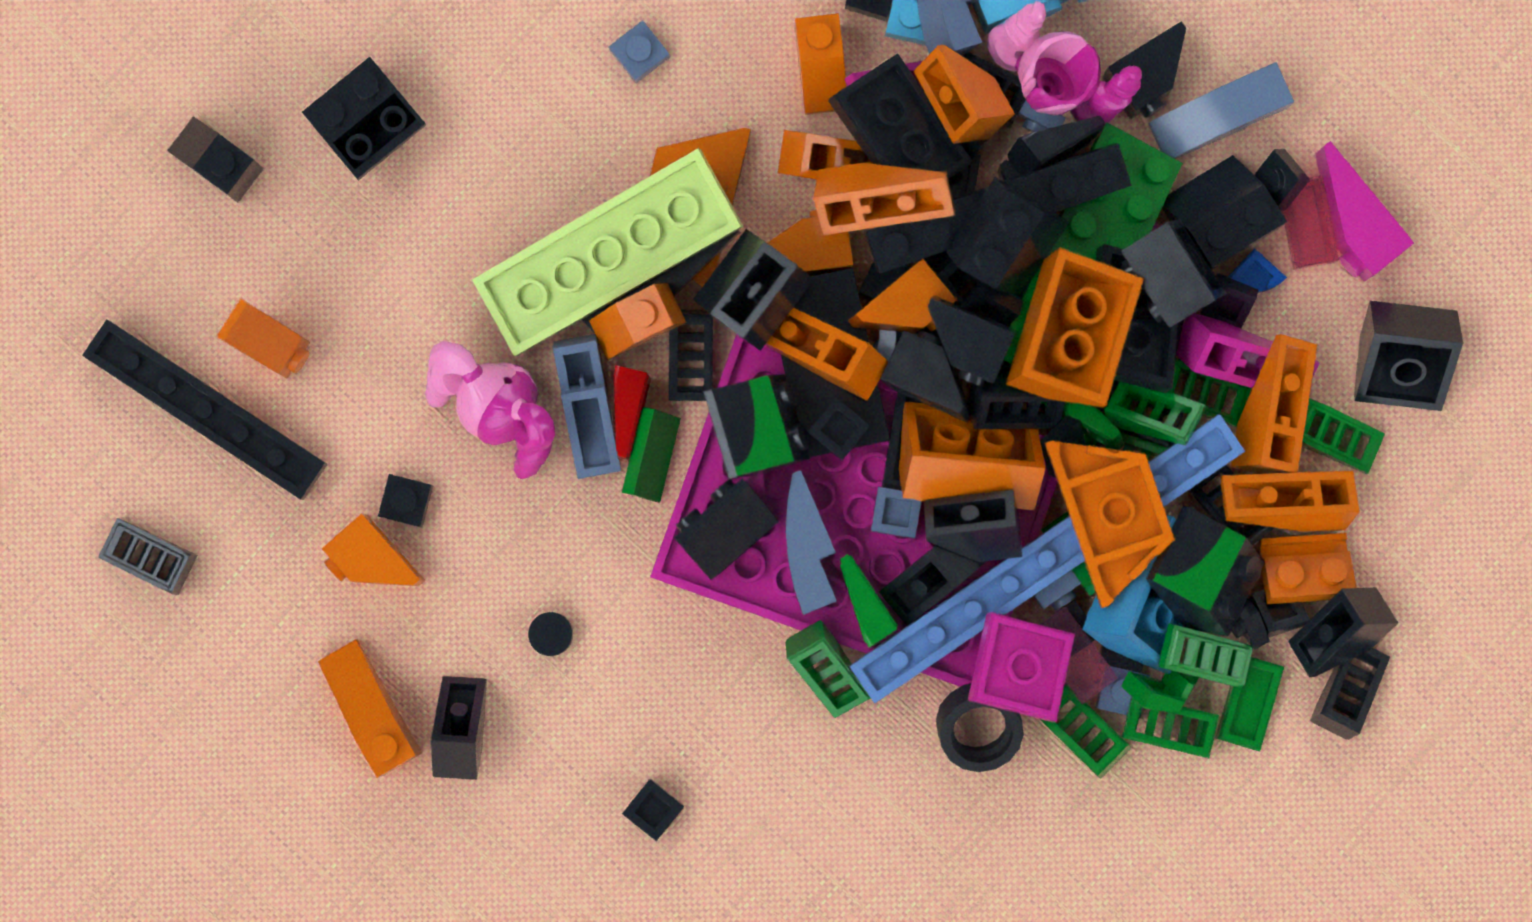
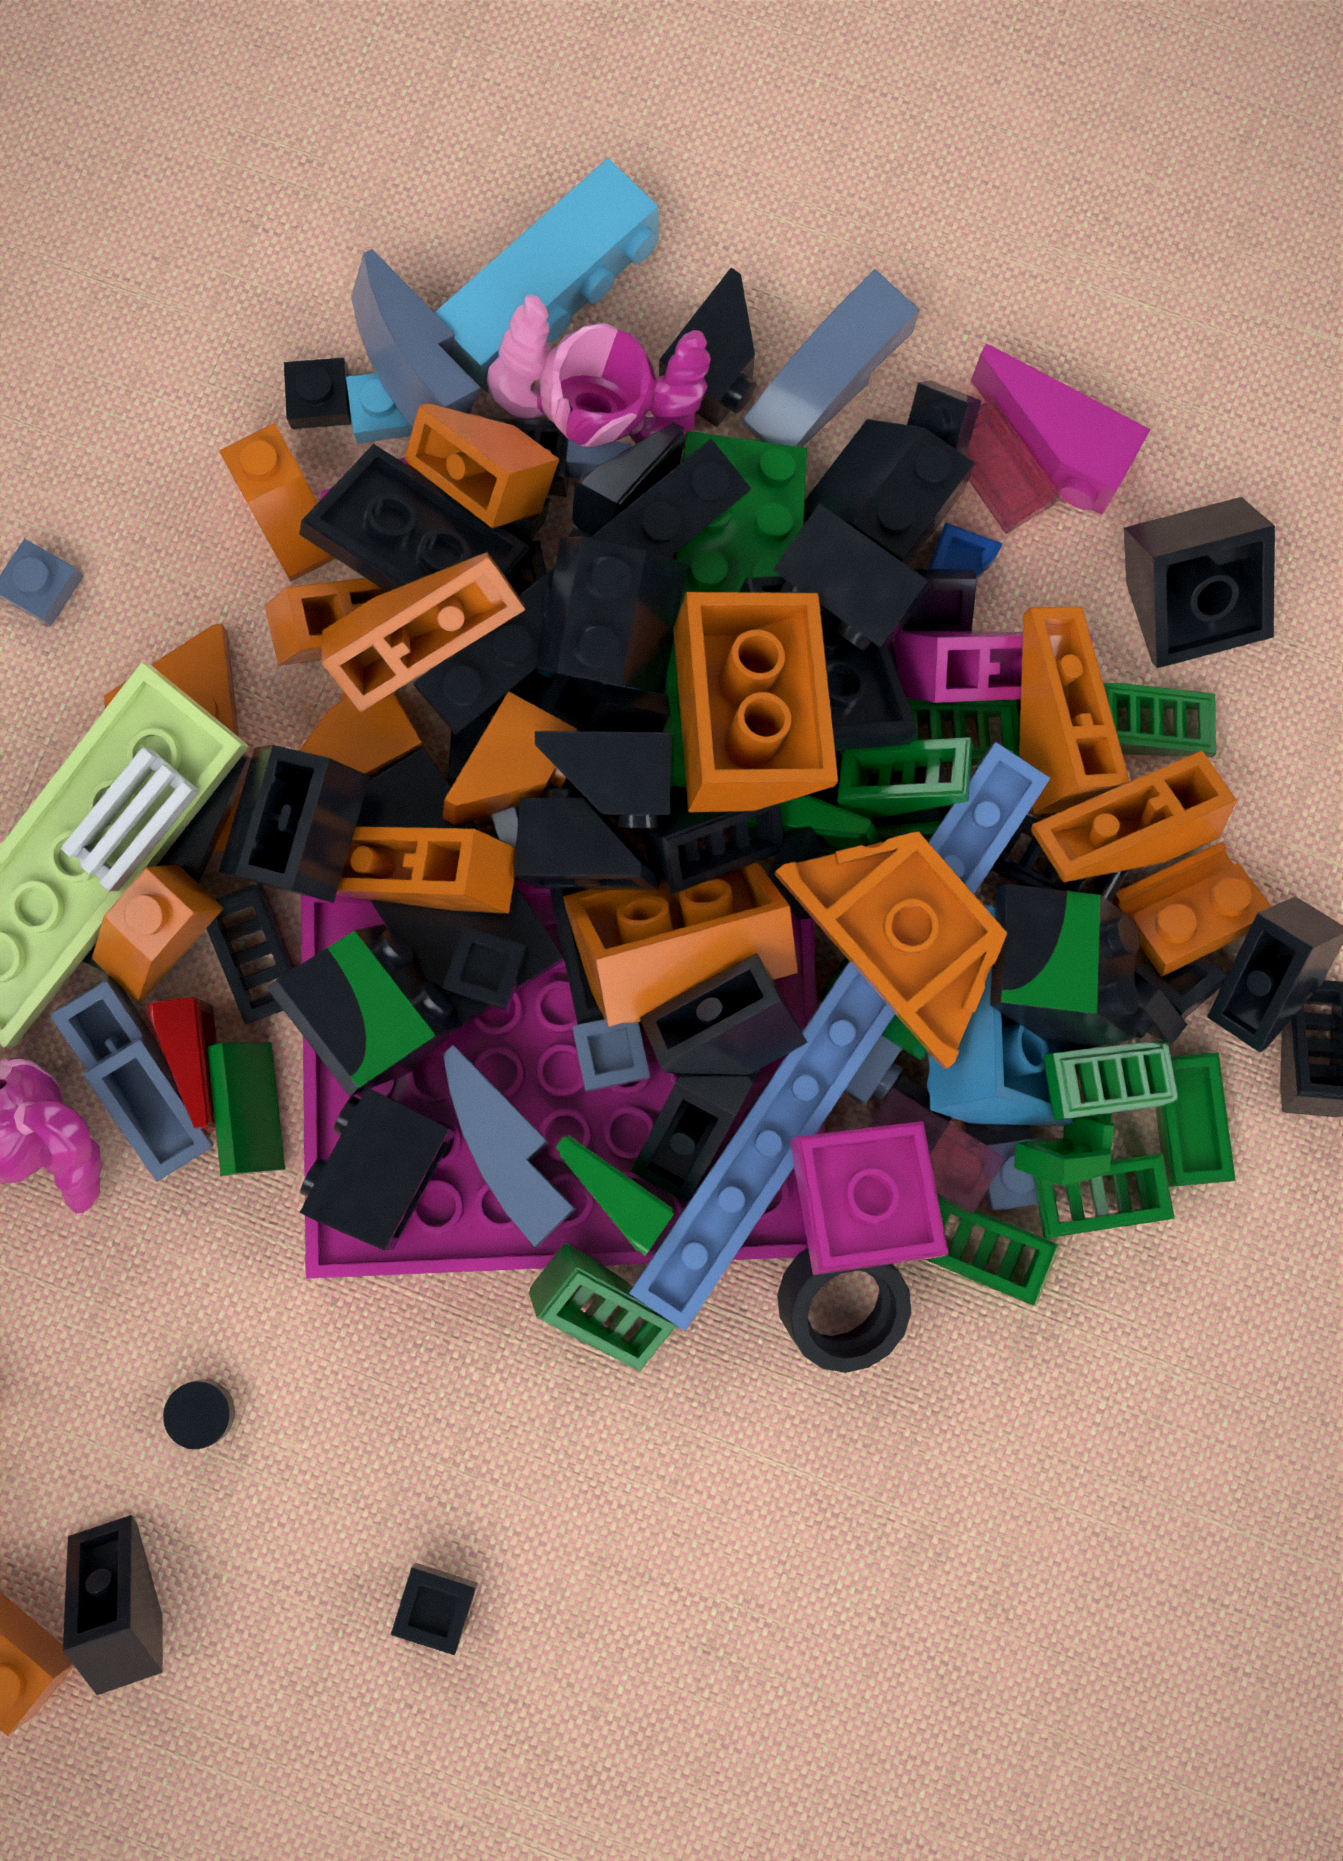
camera: 25 degrees left, 5 degrees down
(619, 264) = (112, 801): none -> white tile

